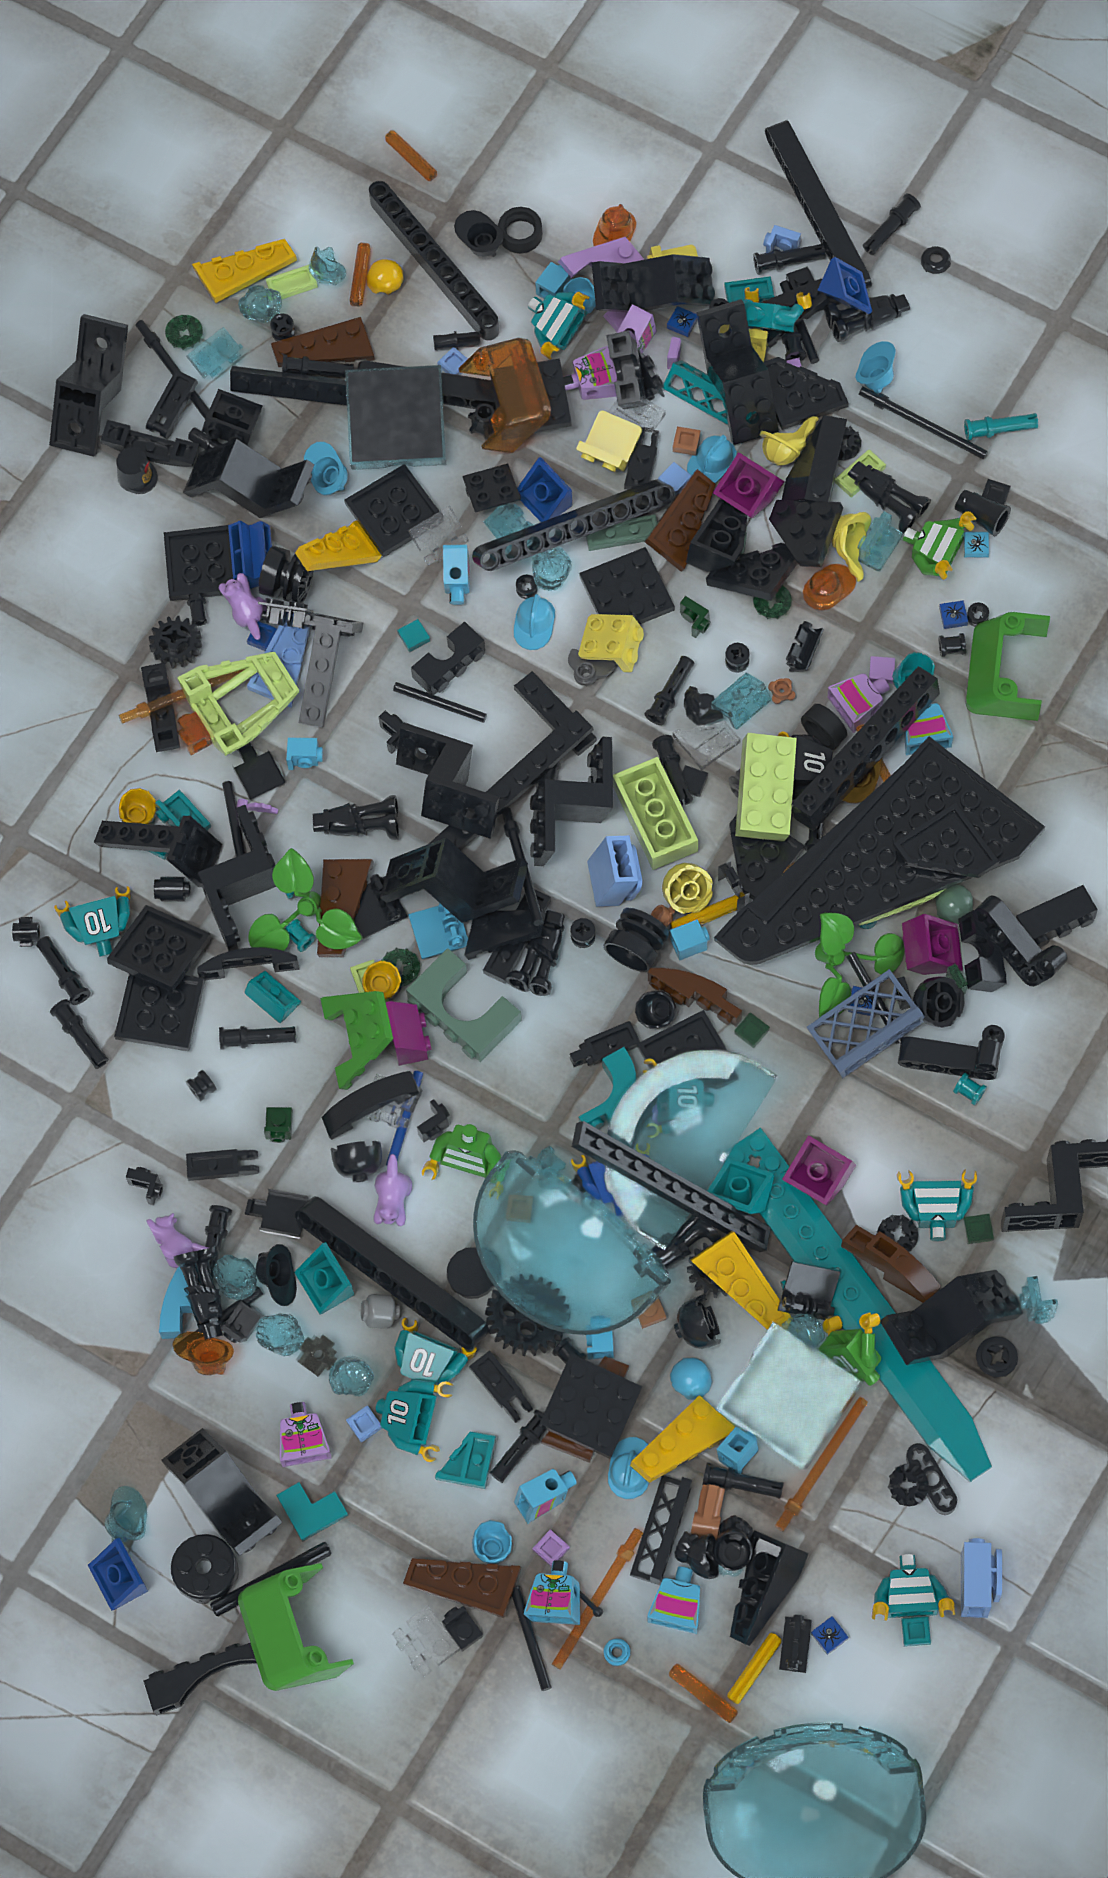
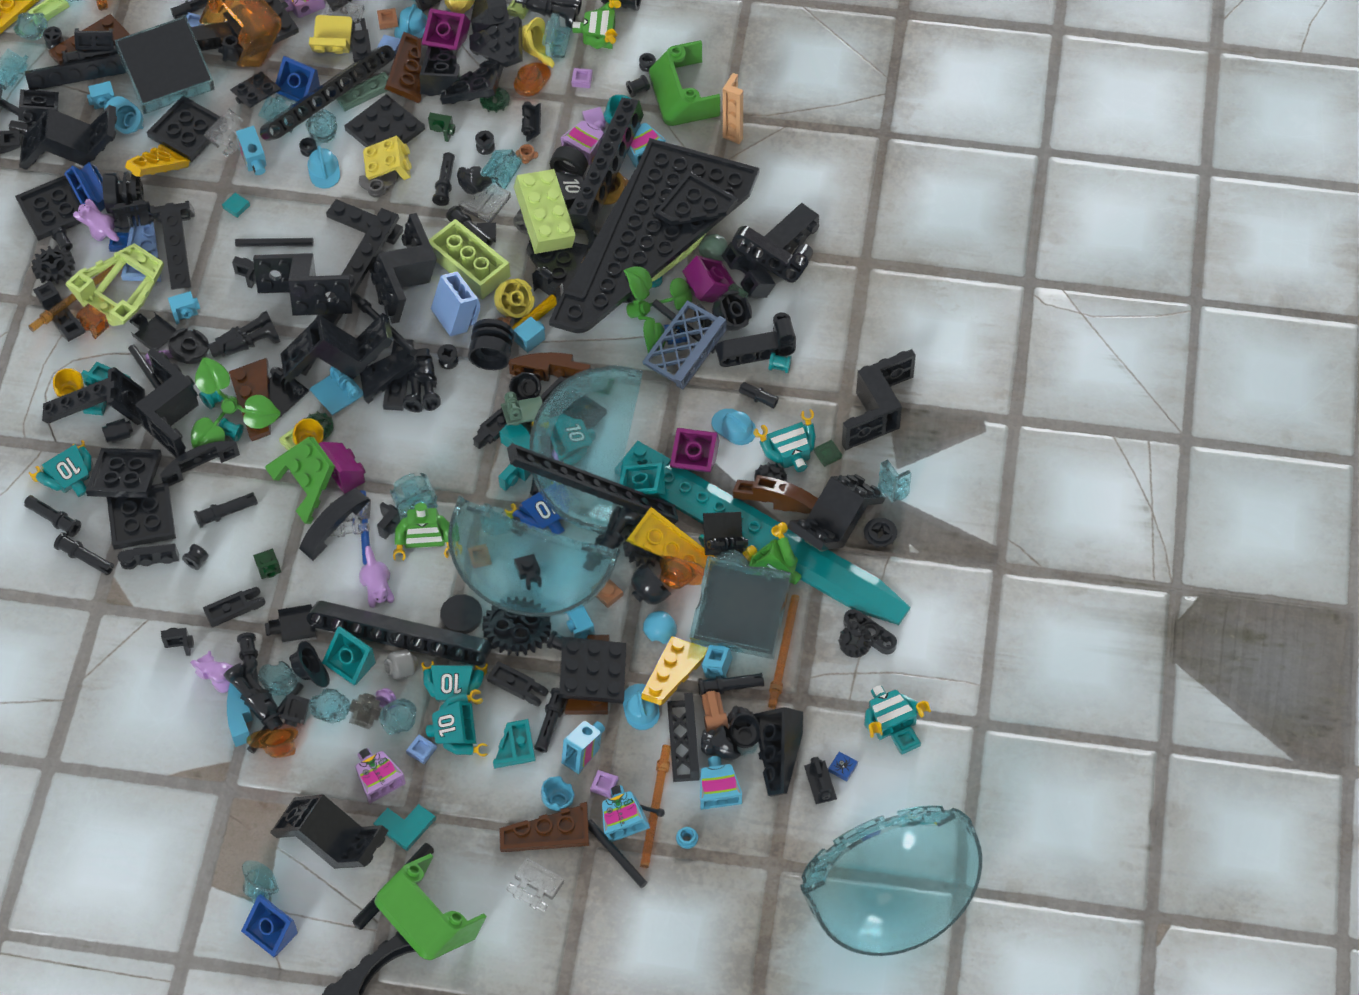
camera: 25 degrees left, 10 degrees down
(26, 931) = (12, 497): black gear -> none
(149, 1064) = (148, 555): none -> black hinge
(208, 1586) = (339, 910): black plate -> none
(271, 996) = (225, 479): teal slope -> none
(290, 807) = (188, 346): none -> black tile
(310, 429) = (100, 94): none -> medium azure brick
(326, 353) = (94, 40): none -> black hinge
(347, 1345) = (385, 696): none -> lavender plate
(357, 1160) = (339, 563): black cylinder -> none
(435, 673) = (263, 223): black arch -> none
(461, 1627) = (559, 864): black bracket -> none
(473, 1104) = (413, 490): none -> clear light blue brick
(475, 1036) = (394, 452): sand green arch -> none
(568, 1248) = (528, 569): none -> black plate
(639, 1042) = (520, 411): none -> sand green hinge
(703, 1693) = (765, 842): clear orange axle -> none
(736, 1322) = (679, 572): none -> clear orange piece
(754, 1668) = (796, 810): yellow axle -> none
(882, 1150) = (734, 426): none -> medium azure piece
(889, 607) = (582, 78): none -> lavender tile
(927, 1121) = (758, 394): none -> black axle
(953, 614) = (629, 68): blue tile -> none
(976, 544) = (626, 19): medium azure tile -> none
(979, 1577) = (937, 681): light blue brick -> none
(1046, 731) = (733, 110): none -> light nougat fence

